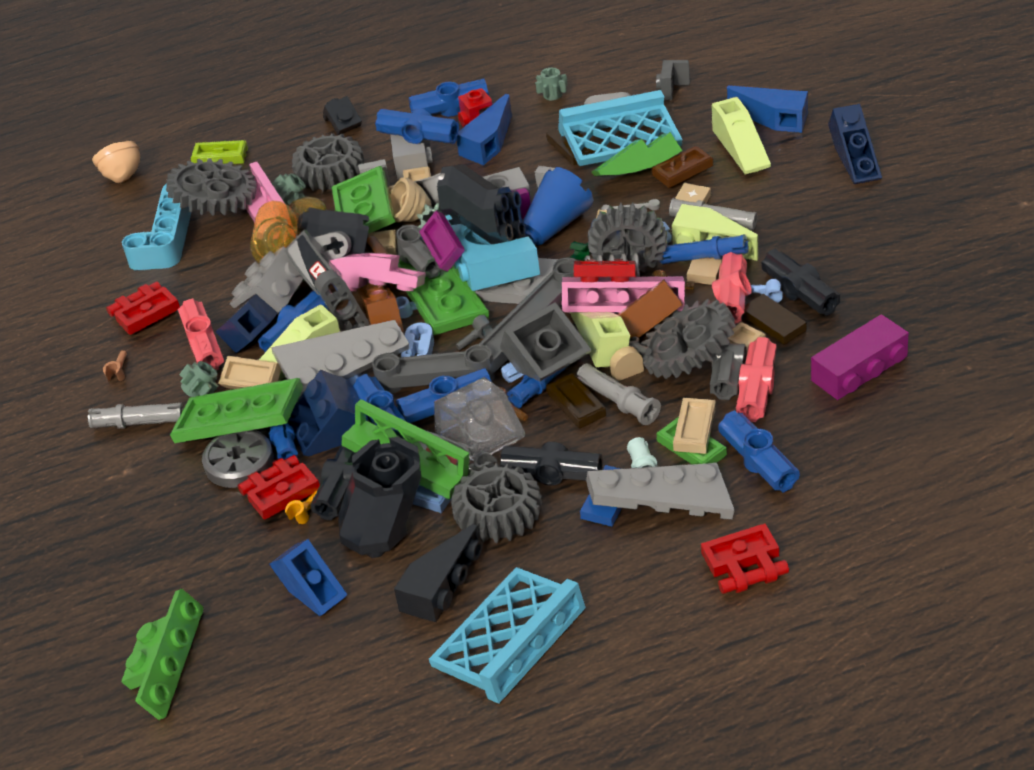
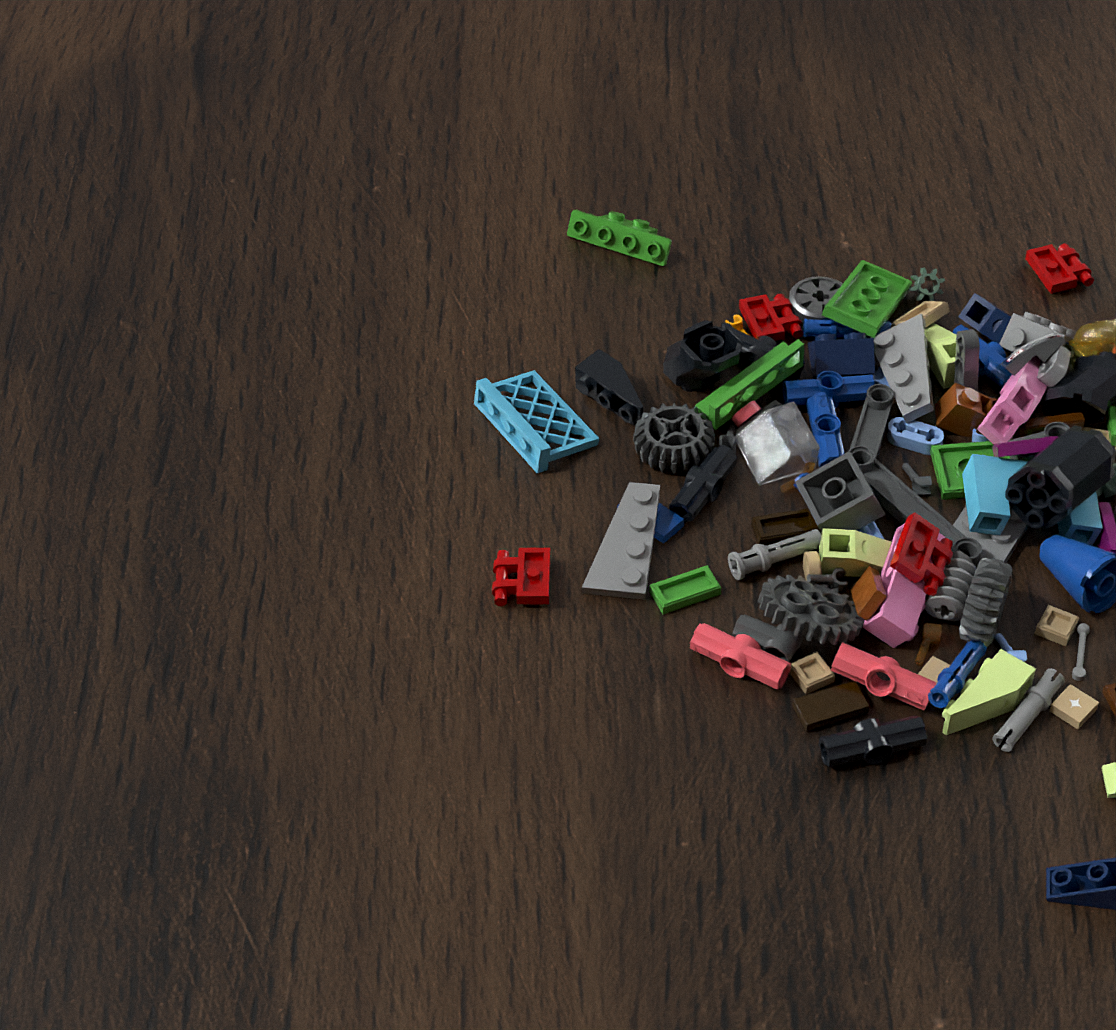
camera: 105 degrees right, 5 degrees up
(115, 367) = (974, 246): nougat hand -> none
(144, 414) = (906, 241): light grey pin -> none
(200, 333) = (996, 291): coral piece -> none
(308, 577) = (652, 314): blue slope -> none
(581, 250) = (1016, 585): dark green hand -> none
(640, 454) = (680, 545): light aqua pin -> none
(694, 425) = (696, 587): tan tile -> none
(758, 451) = (640, 622): blue piece -> none
(771, 289) = (883, 712): light blue hand -> none
(859, 356) = (729, 745): magenta brick -> none

